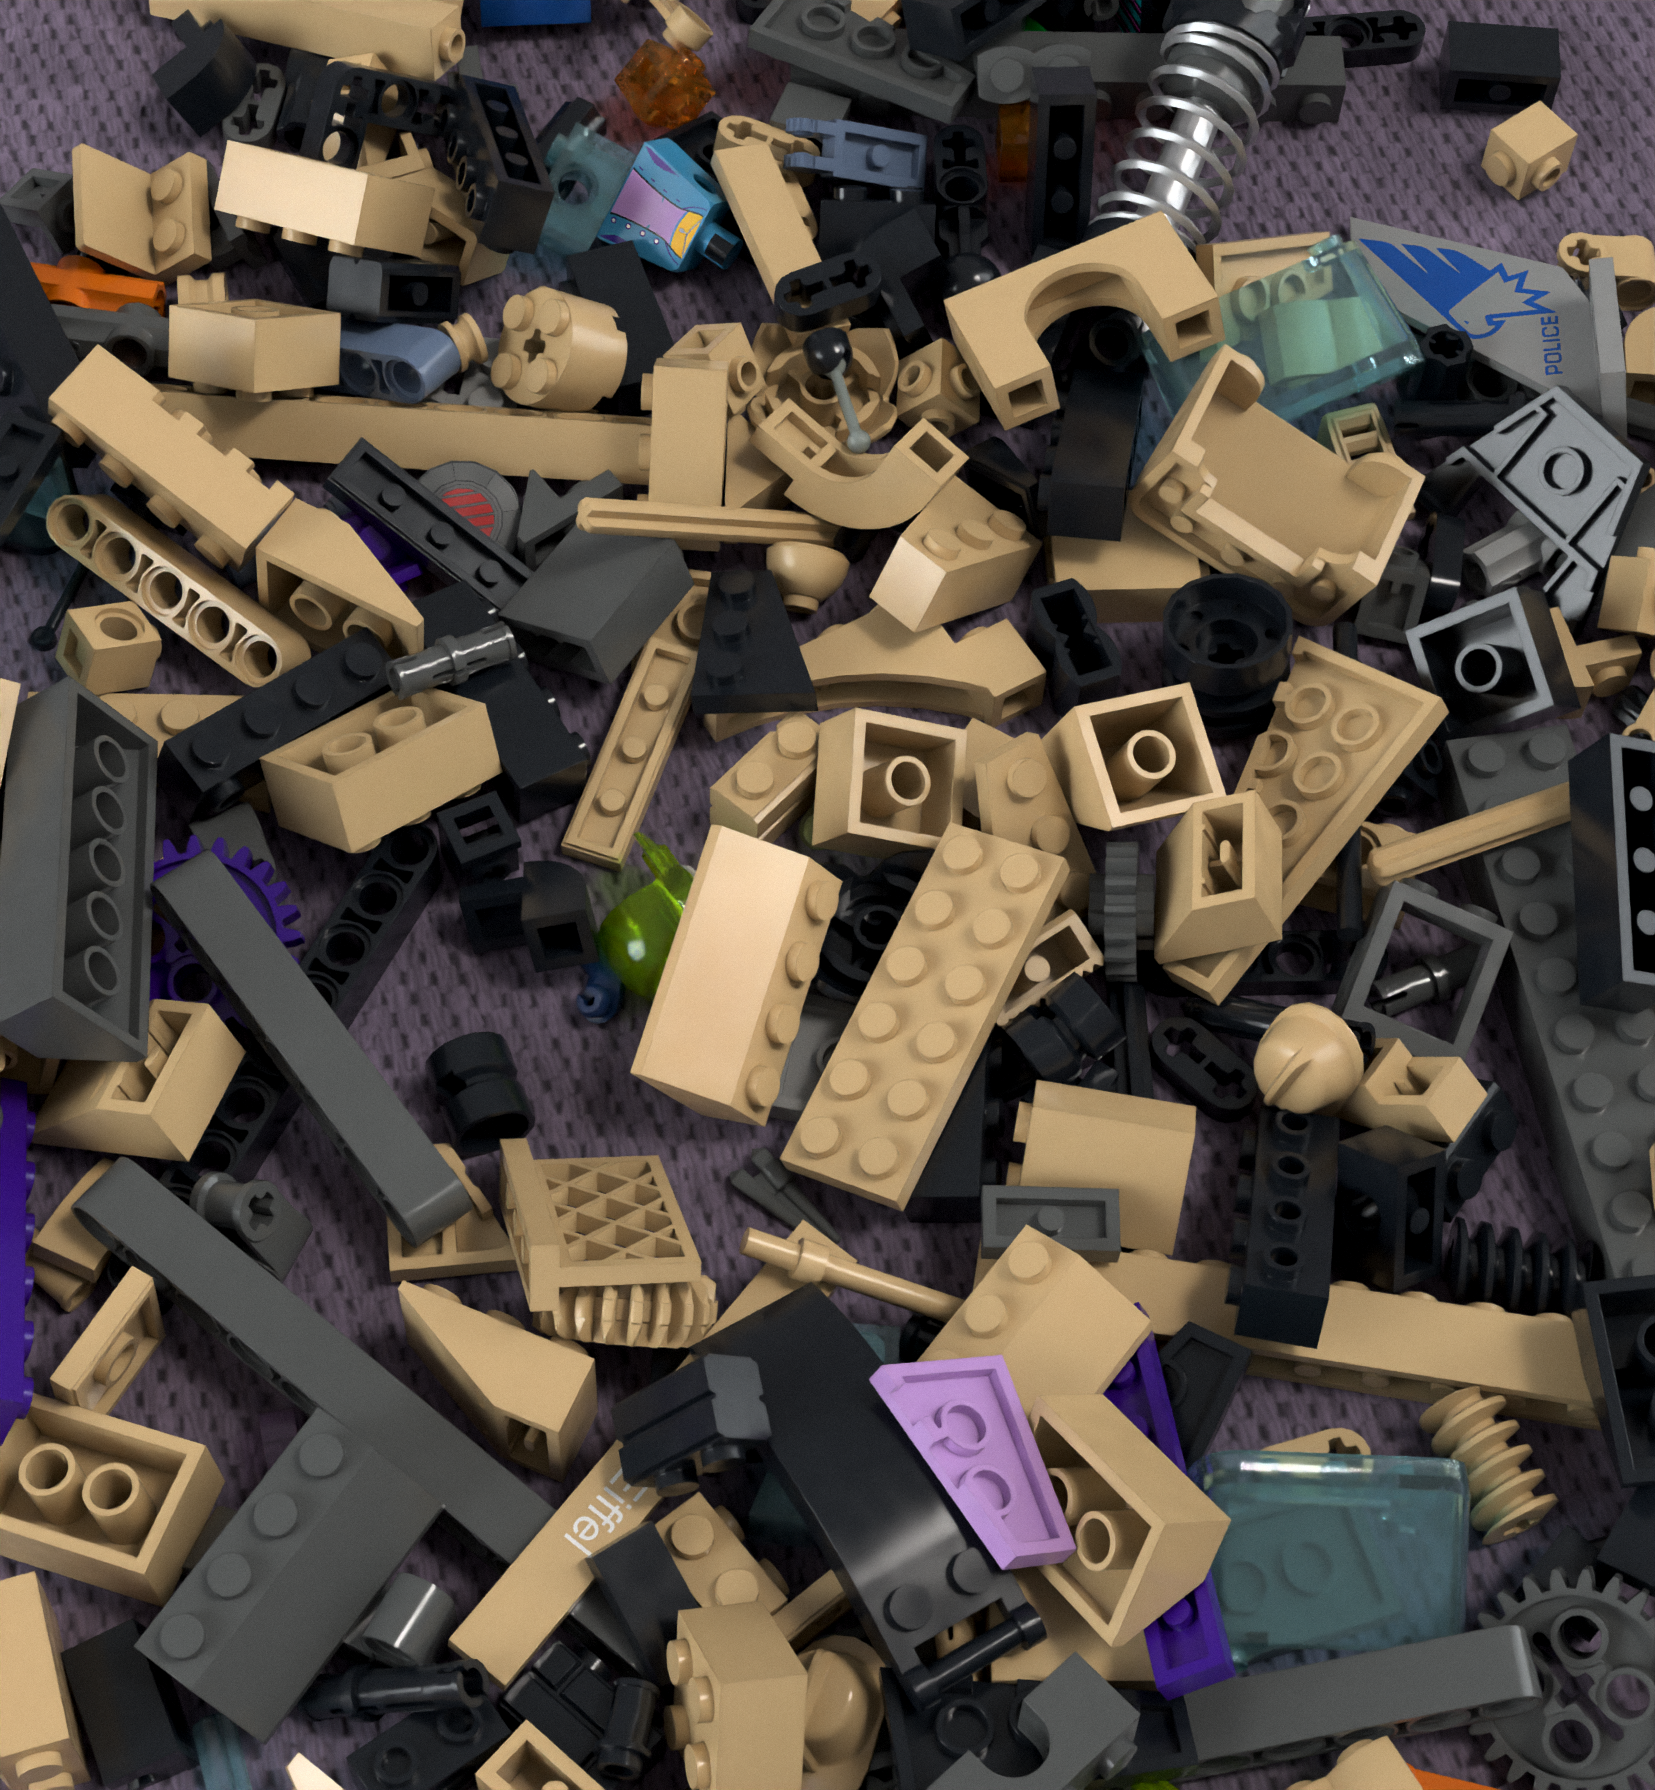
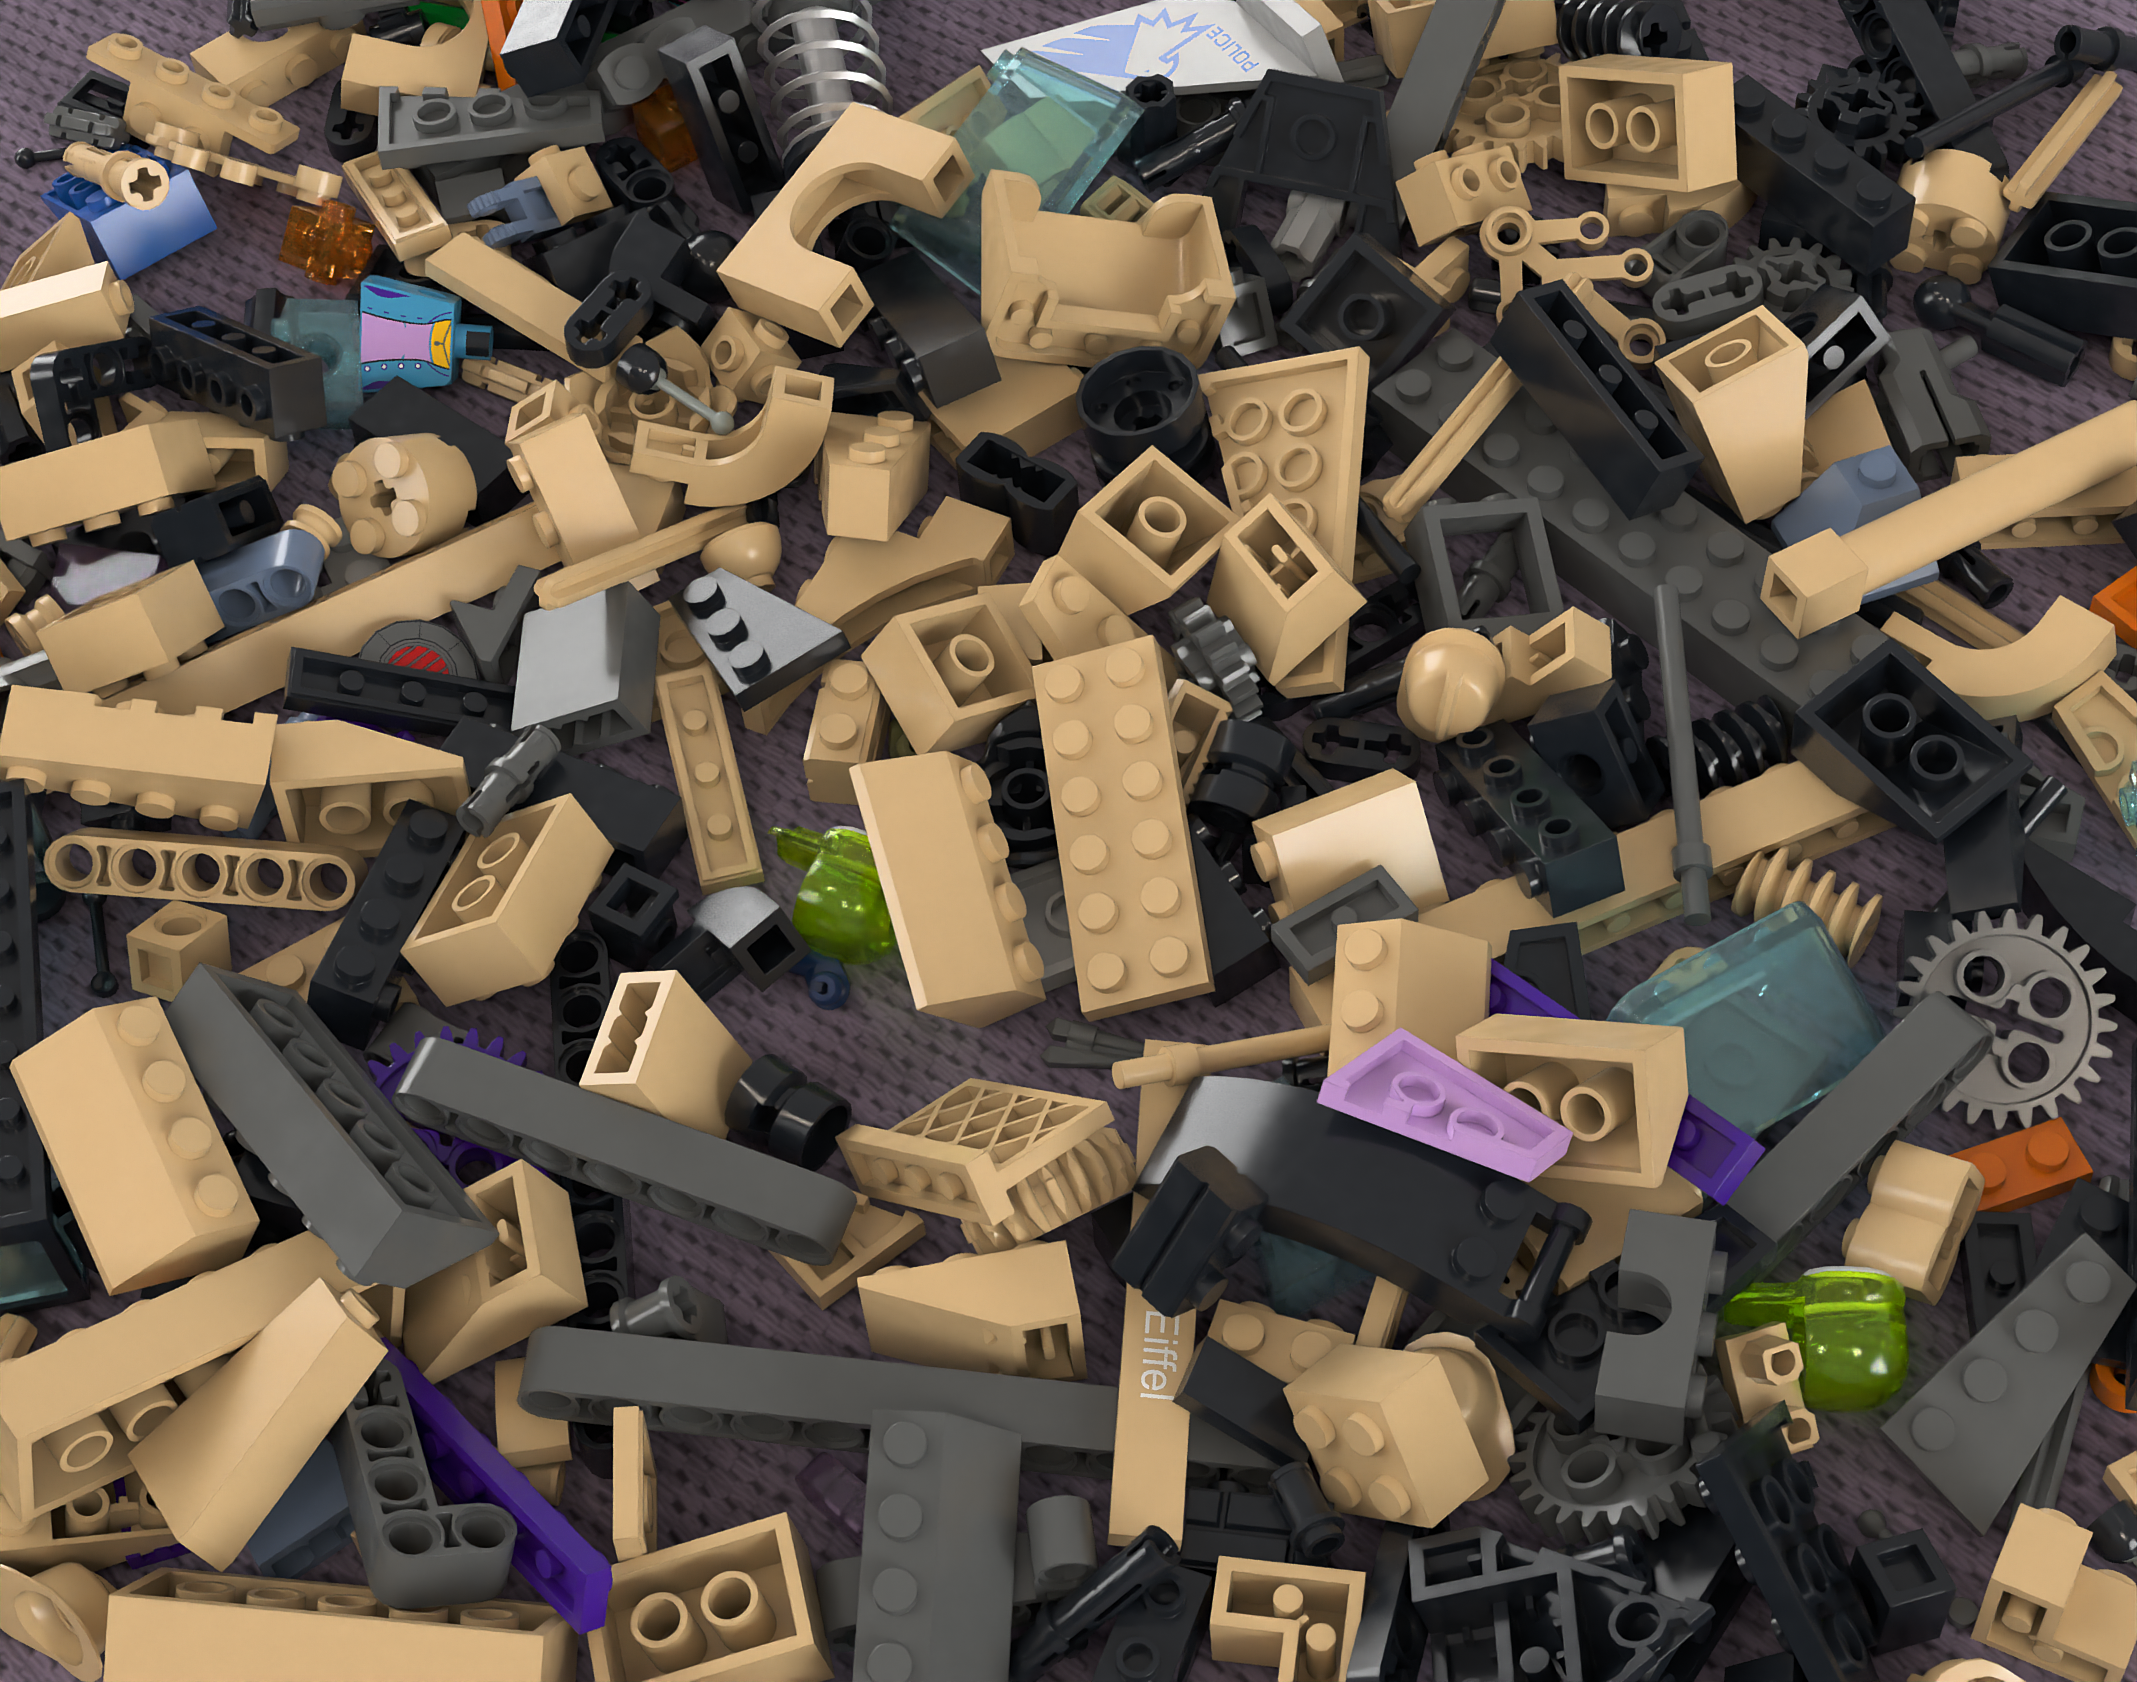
camera: 25 degrees left, 5 degrees down
(280, 277) = (92, 571): none -> tile
(399, 988) = (665, 1053): none -> tan brick
(731, 297) = (502, 378): none -> tan axle
(740, 91) = (397, 206): none -> tan tile
(894, 146) = (569, 183): none -> tan bracket
(1404, 1353) = (1691, 856): none -> dark grey bar

